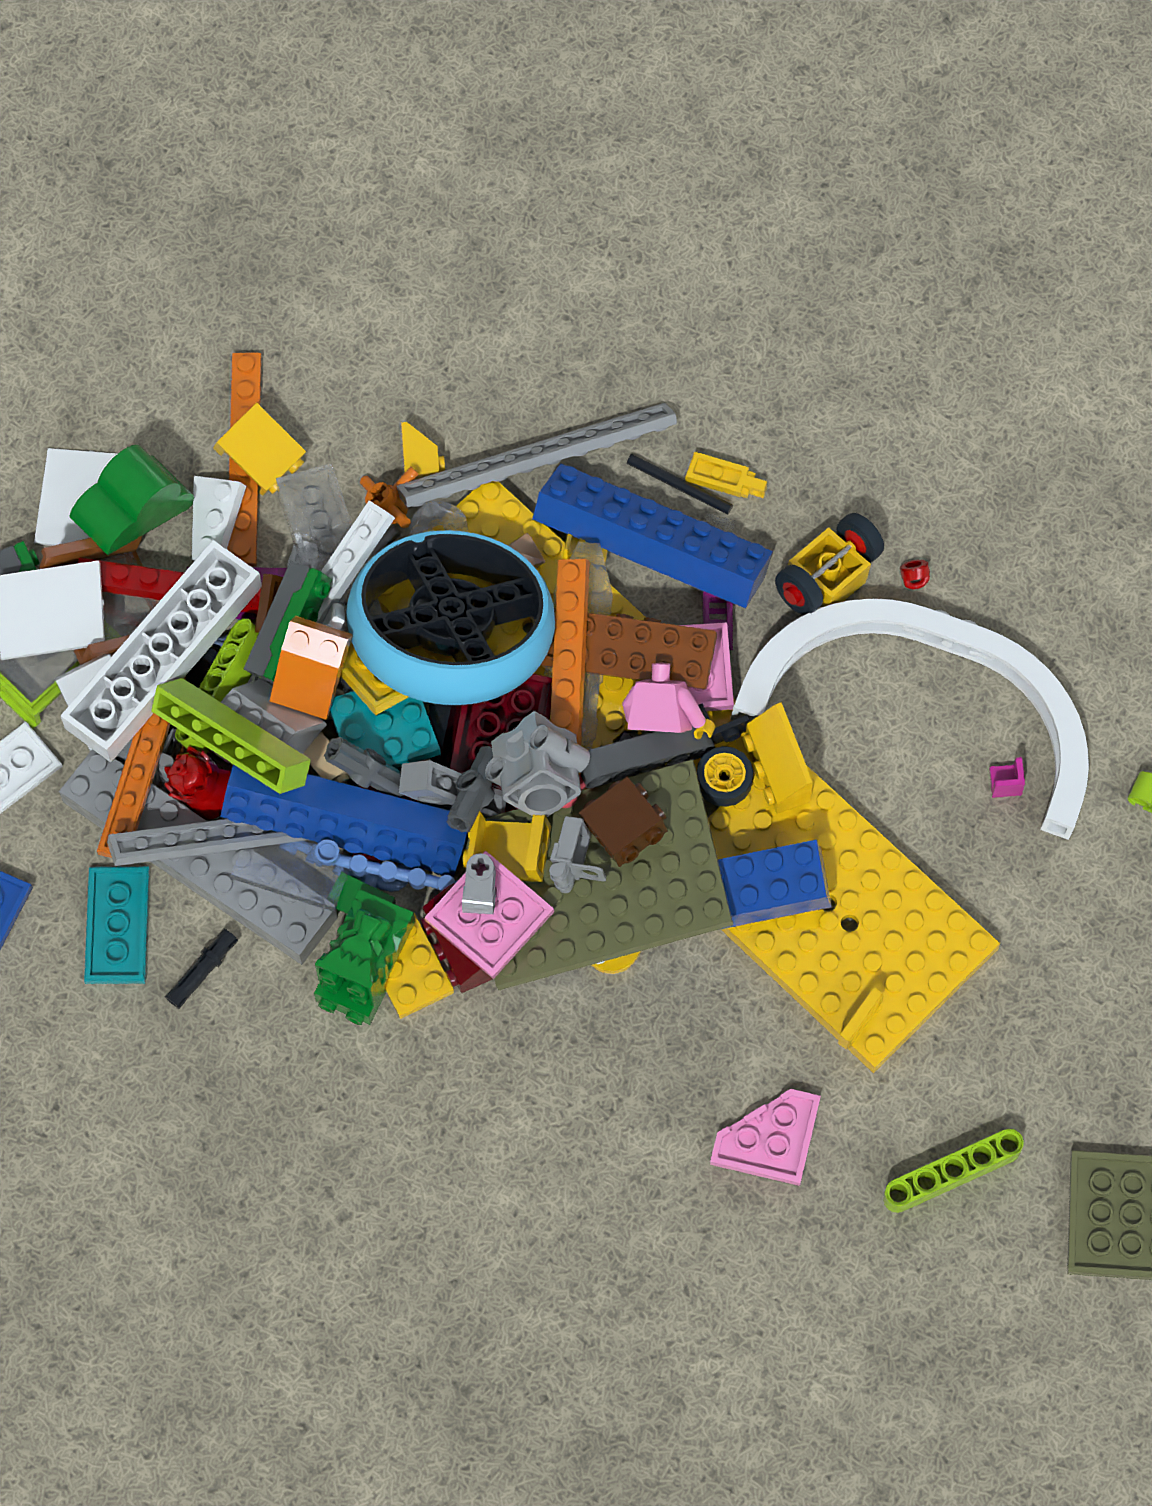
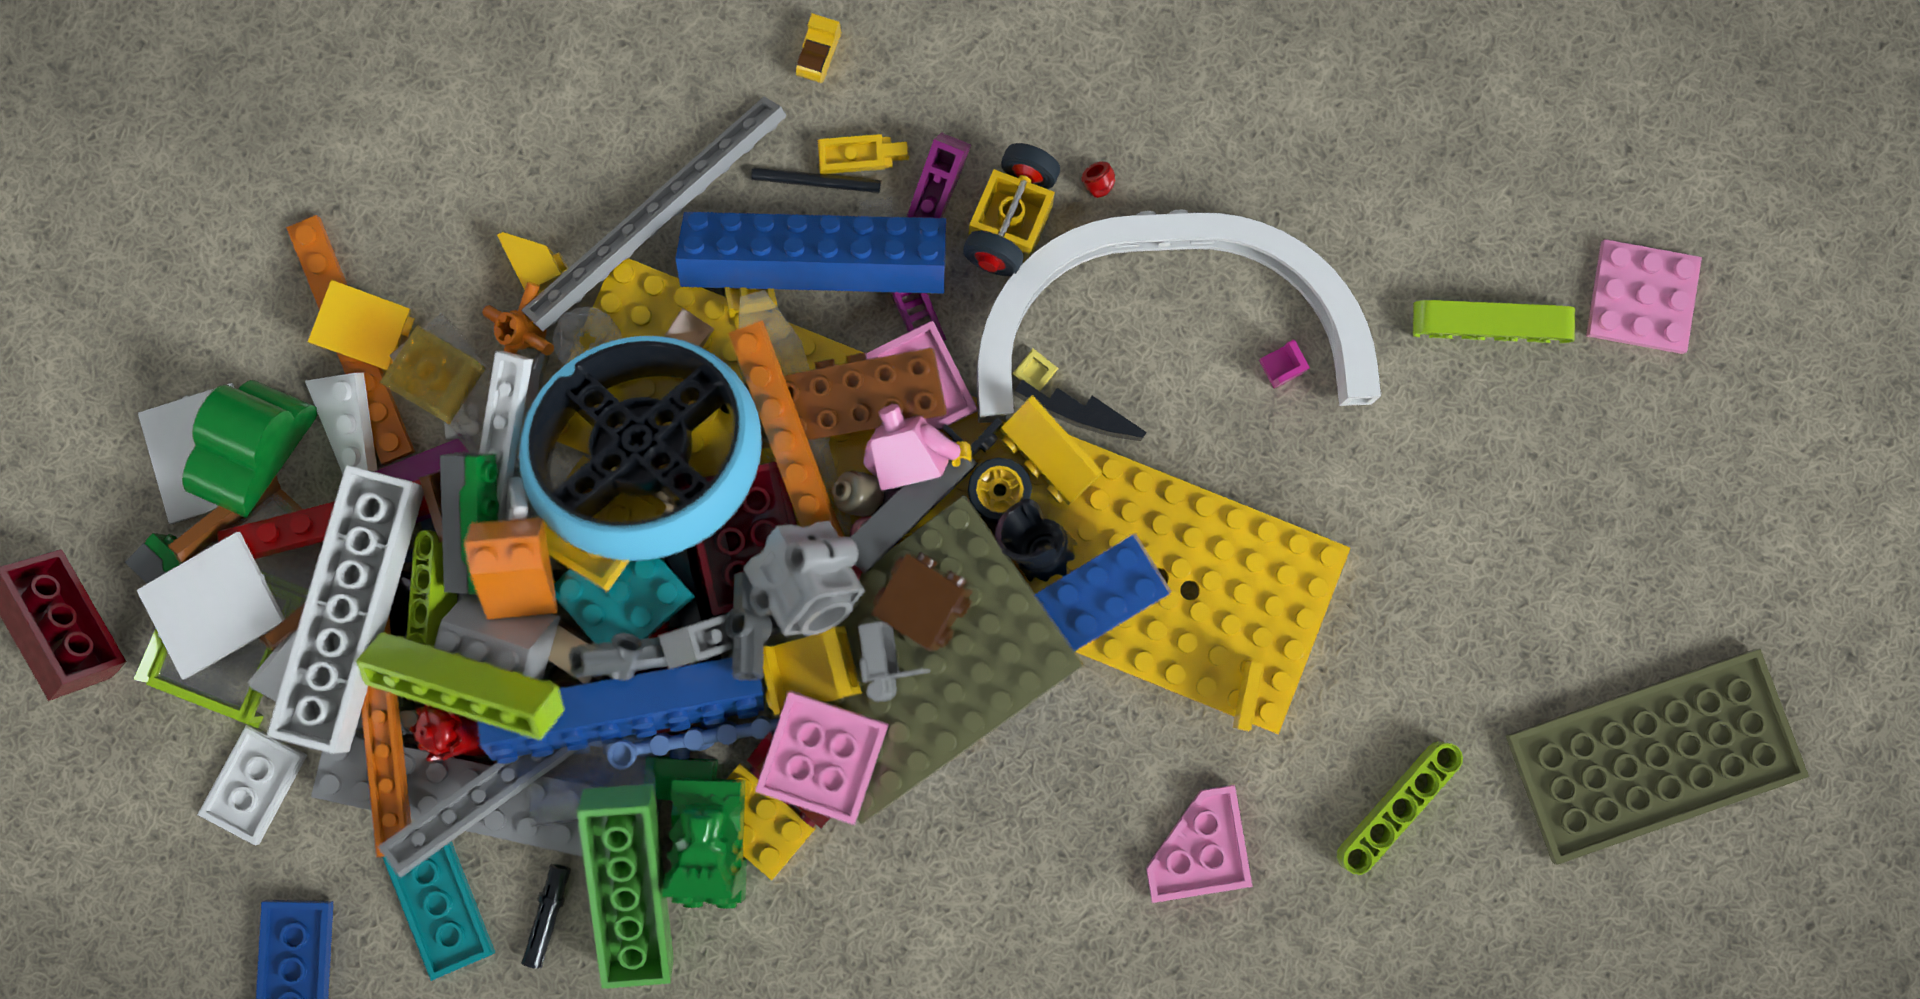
camera: 20 degrees left, 15 degrees up
(285, 956) = (626, 885): none -> bright green brick
(308, 503) = (433, 374): none -> clear yellow brick
(479, 890) = (802, 744): light grey piece -> none
(606, 727) = (857, 493): none -> dark tan head
(726, 382) = (818, 48): none -> yellow leg
(735, 824) = (1035, 543): none -> black hat
(782, 518) = (939, 177): none -> magenta slope
(796, 703) = (1035, 370): none -> light yellow tile
(827, 754) = (1093, 416): none -> black slope

